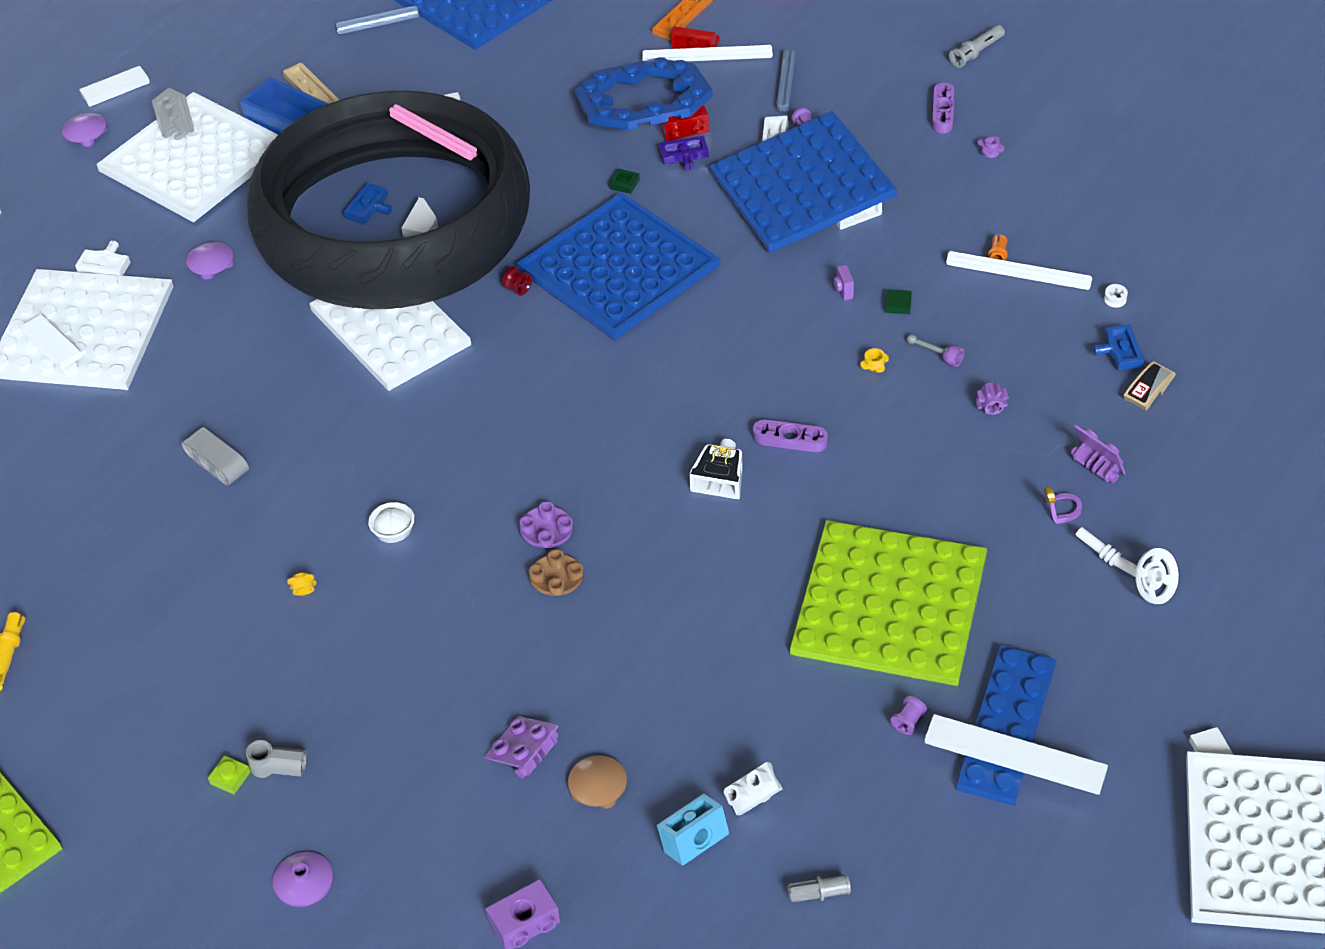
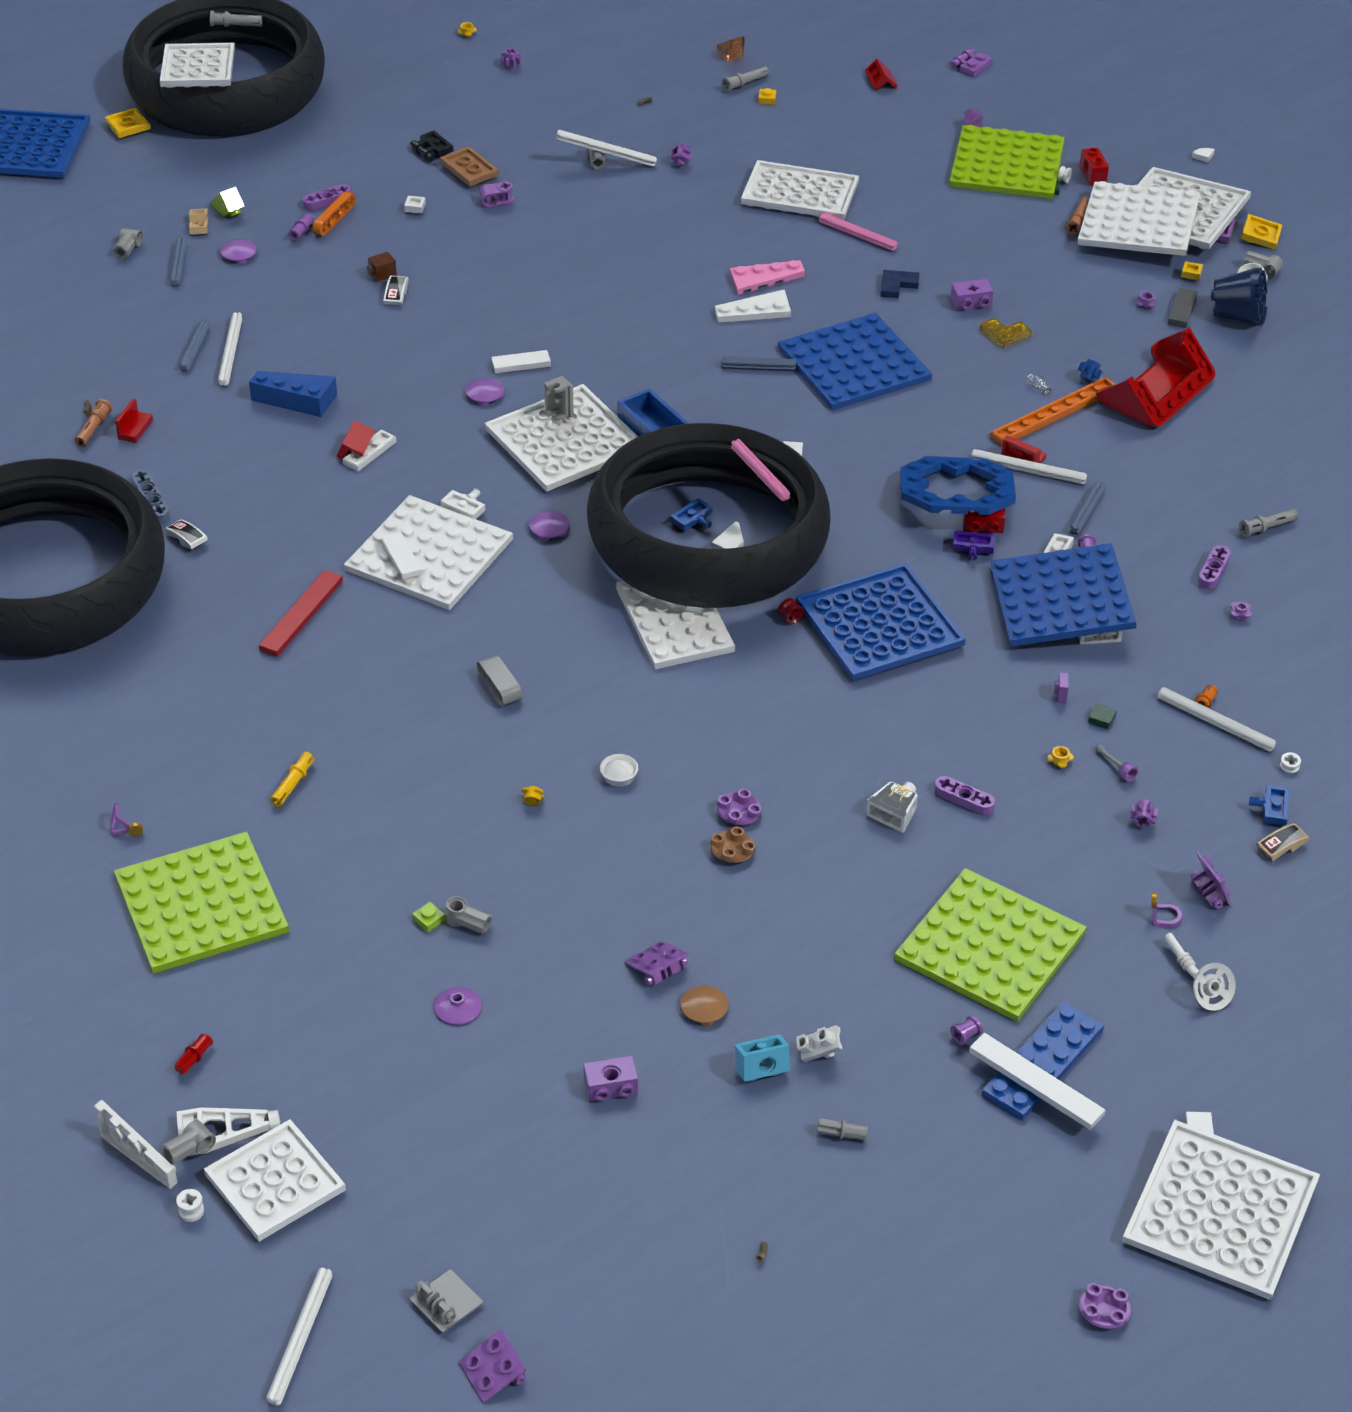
camera: 15 degrees right, 5 degrees down
(305, 81) = (680, 402): tan plate -> none
(624, 181) = (913, 554): dark green tile -> none

